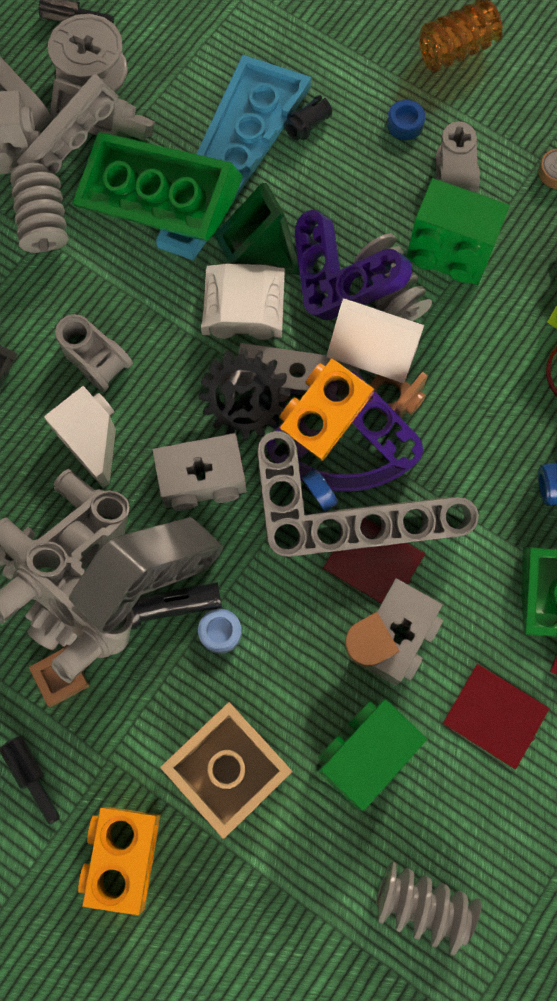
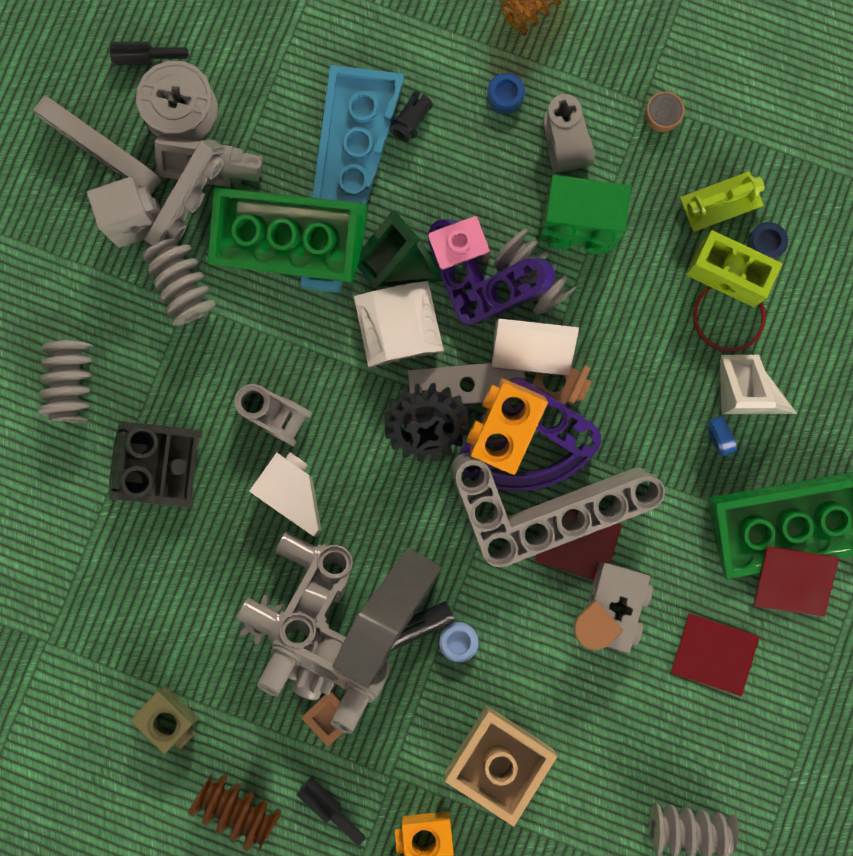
camera: 15 degrees left, 10 degrees up
(178, 470) = (415, 485): light grey brick -> none
(320, 489) = (517, 497): blue tile -> none
(324, 232) = (459, 243): none -> bright pink bracket
(370, 754) = (617, 723): green brick -> none

